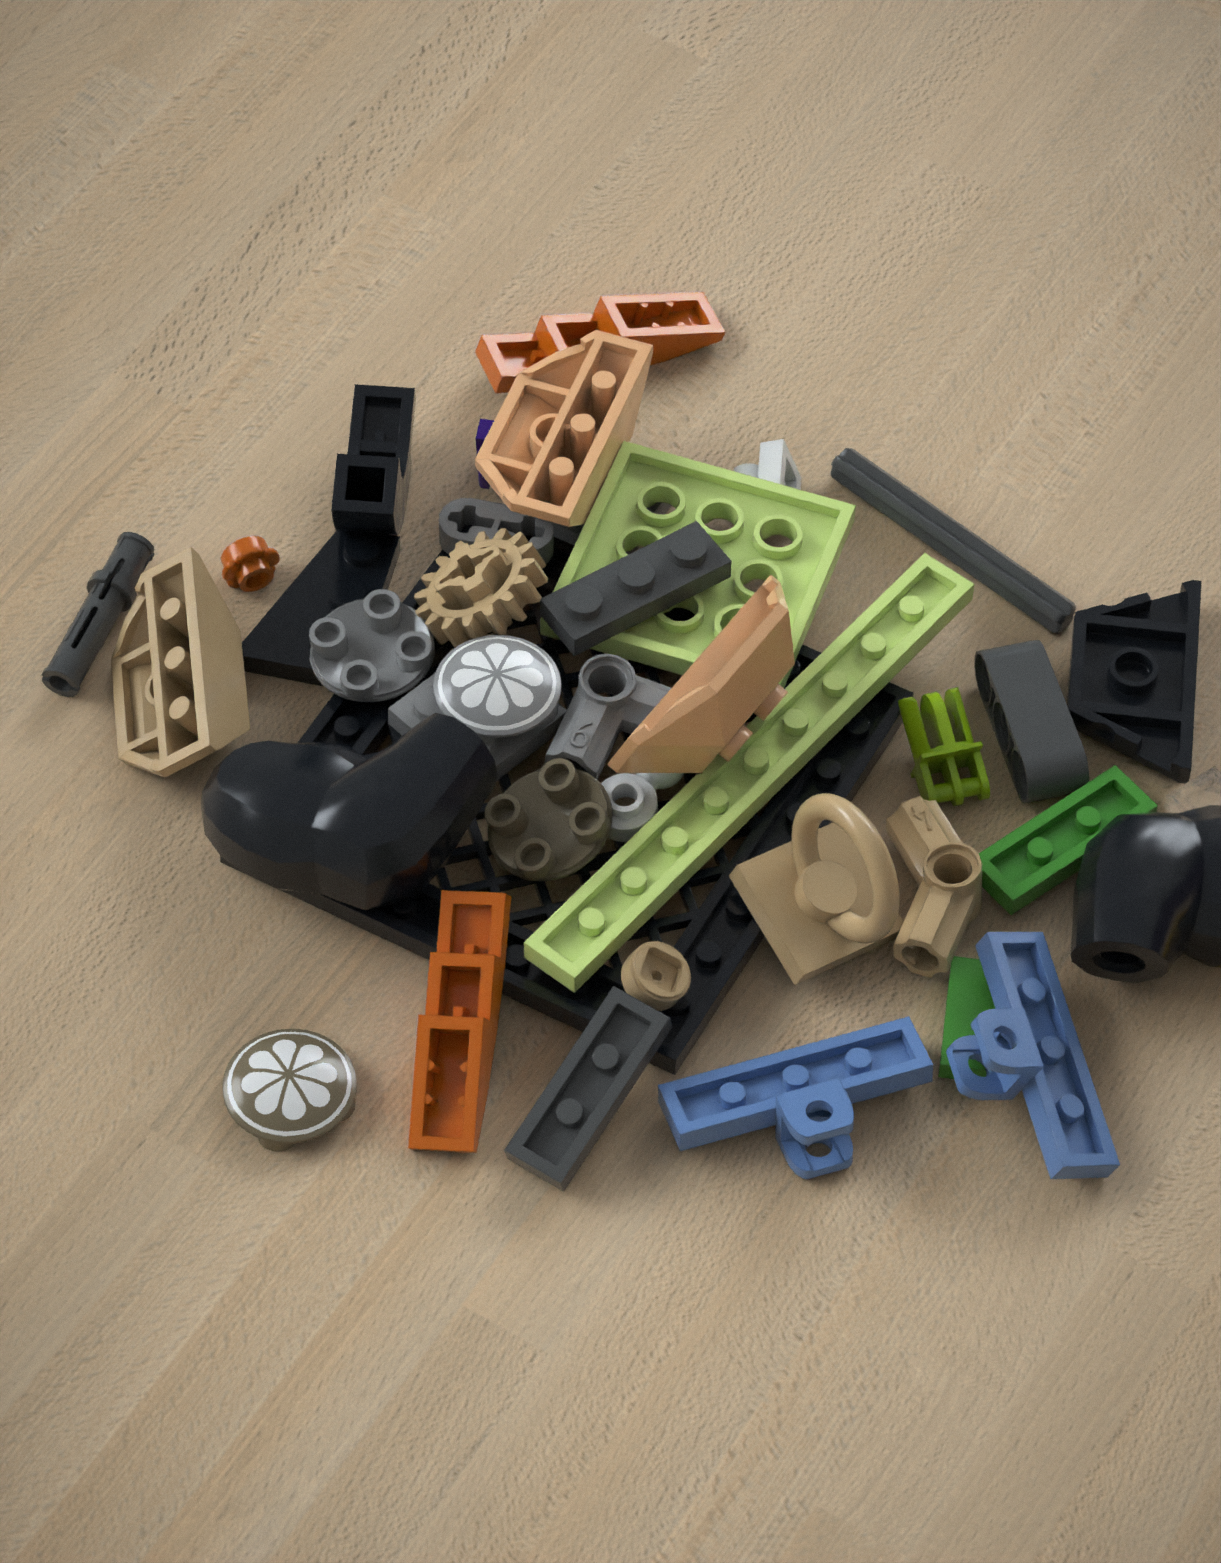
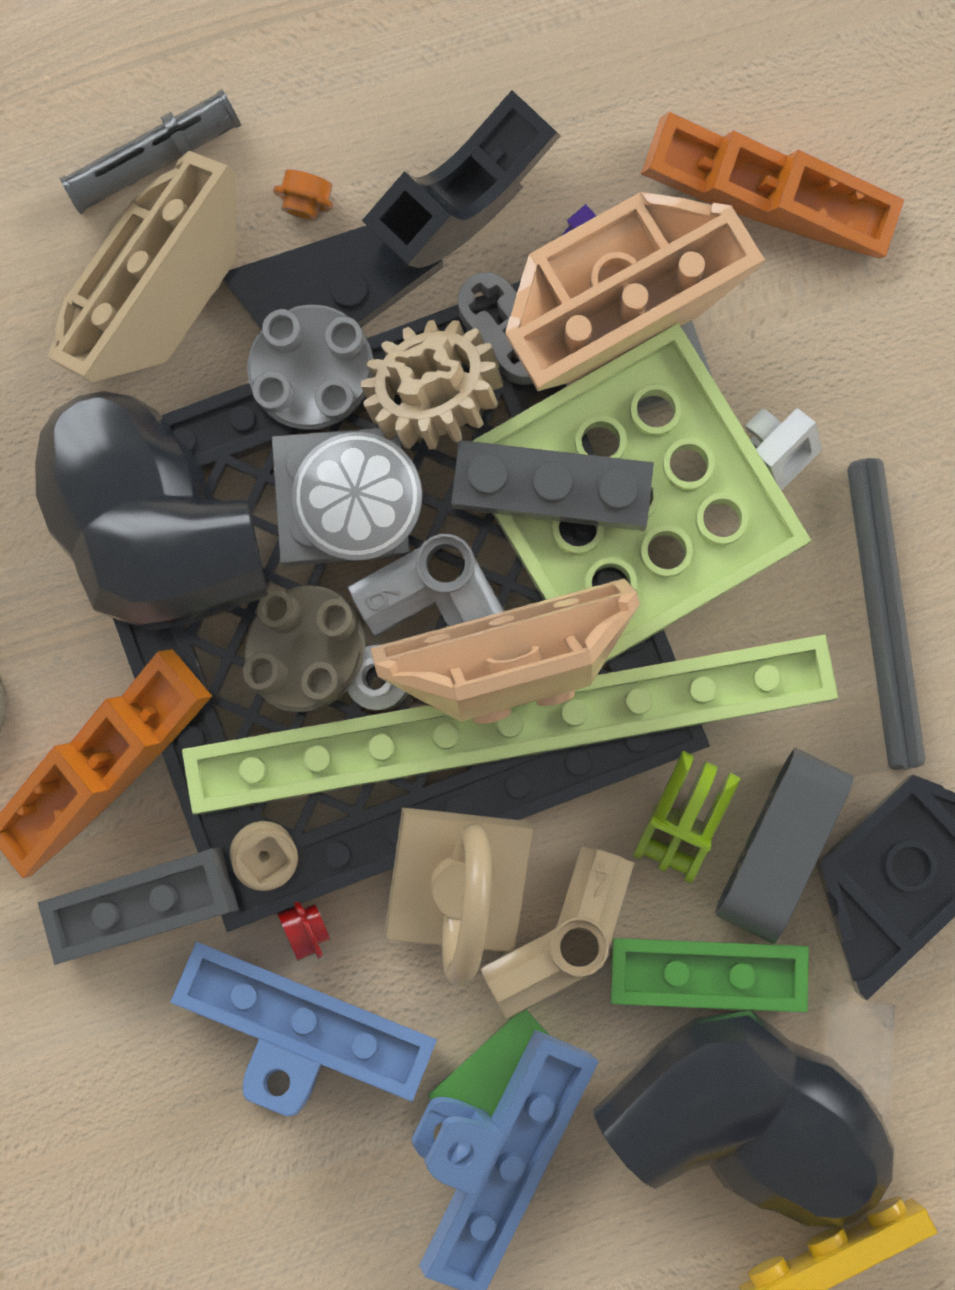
camera: 45 degrees right, 30 degrees up
(732, 1028) = (304, 930): none -> red plate

